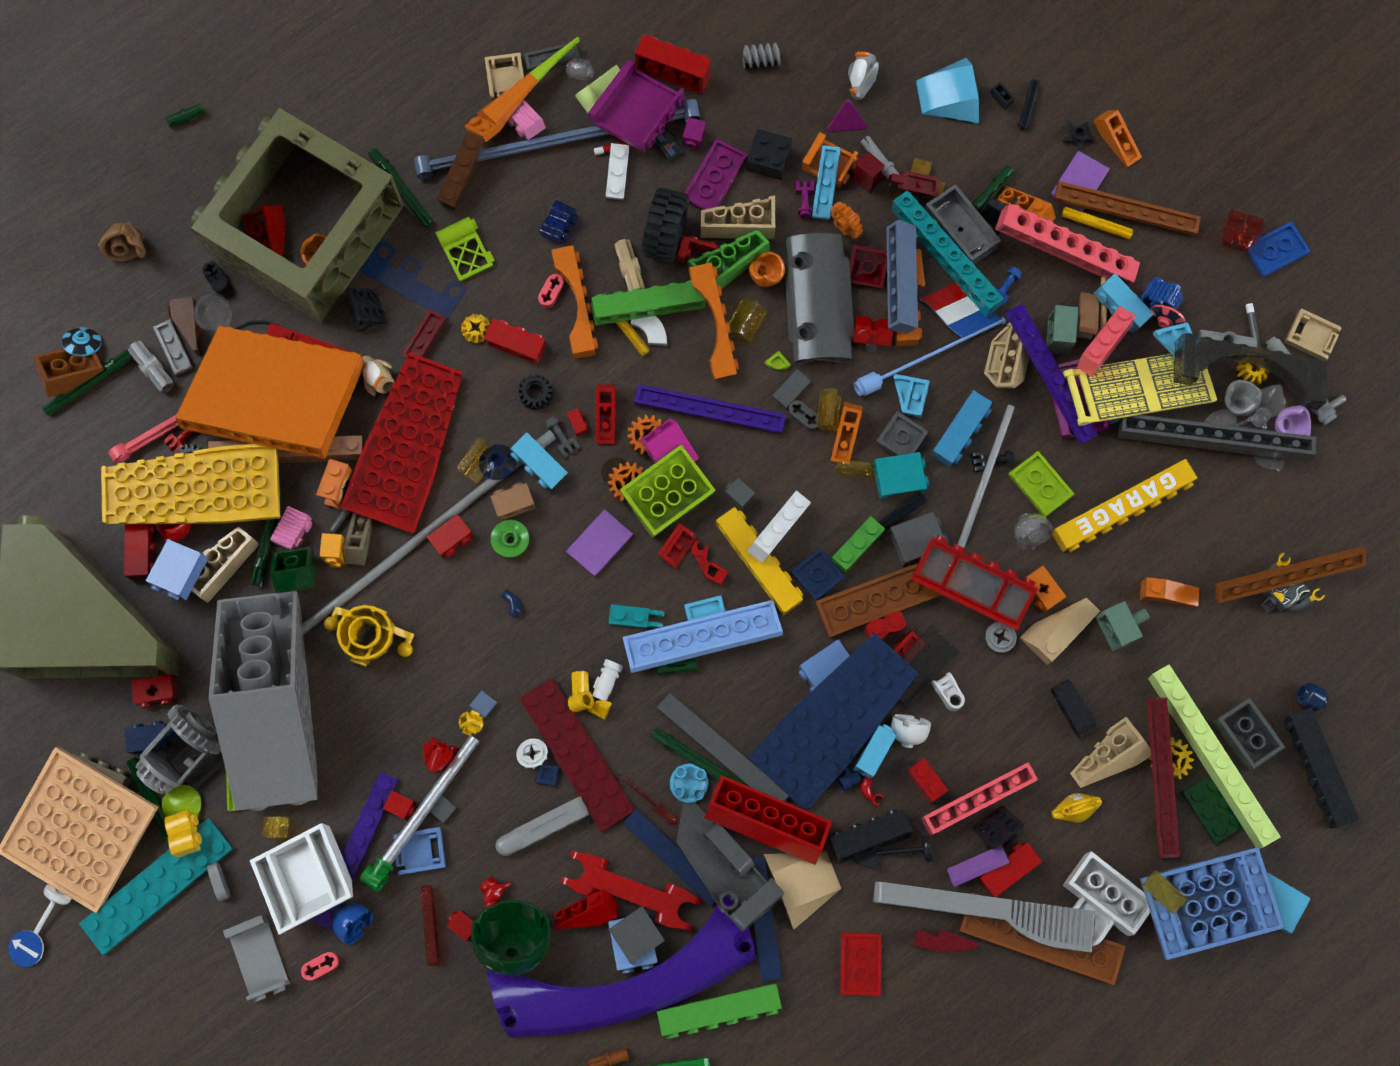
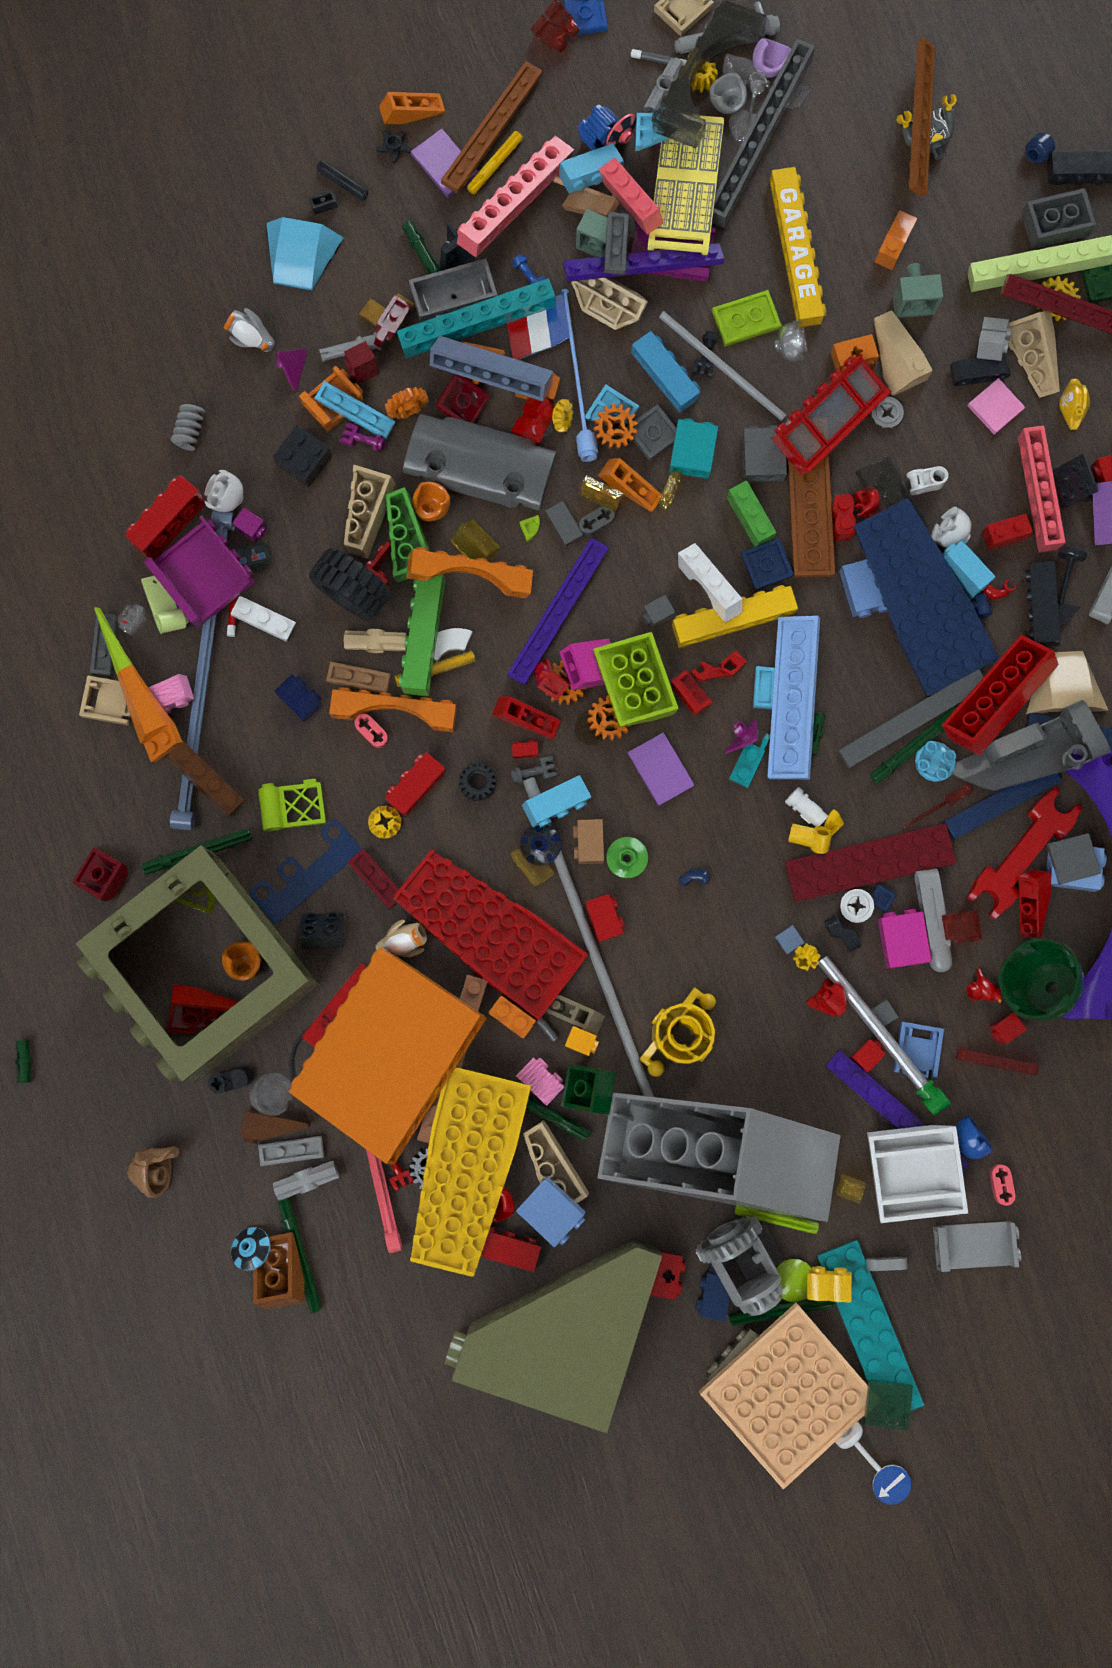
camera: 70 degrees left, 5 degrees up
(92, 920) = (888, 1404): none -> clear green tile
(355, 120) = (101, 875): none -> dark red slope
(504, 742) = (836, 930): none -> black piece
(515, 805) = (904, 939): none -> dark pink brick
(542, 852) = (962, 926): none -> clear red cylinder
(593, 265) = (358, 677): none -> medium nougat tile
(639, 419) = (549, 681): none -> red bracket
(653, 603) = (746, 736): none -> magenta piece
(713, 103) = (224, 492): none -> white cylinder
(715, 175) = (304, 520): magenta tile -> none
(881, 350) = (562, 415): none -> yellow gear
(881, 396) = (608, 420): none -> orange gear
(903, 511) = (729, 459): black axle -> none
(908, 647) = (874, 499): none -> red arm
(1027, 203) = (456, 215): orange slope -> none
(1045, 735) = (996, 406): none -> bright pink tile
(1054, 340) = (616, 243): none -> dark grey plate
(1105, 708) = (994, 338): none -> light grey piece

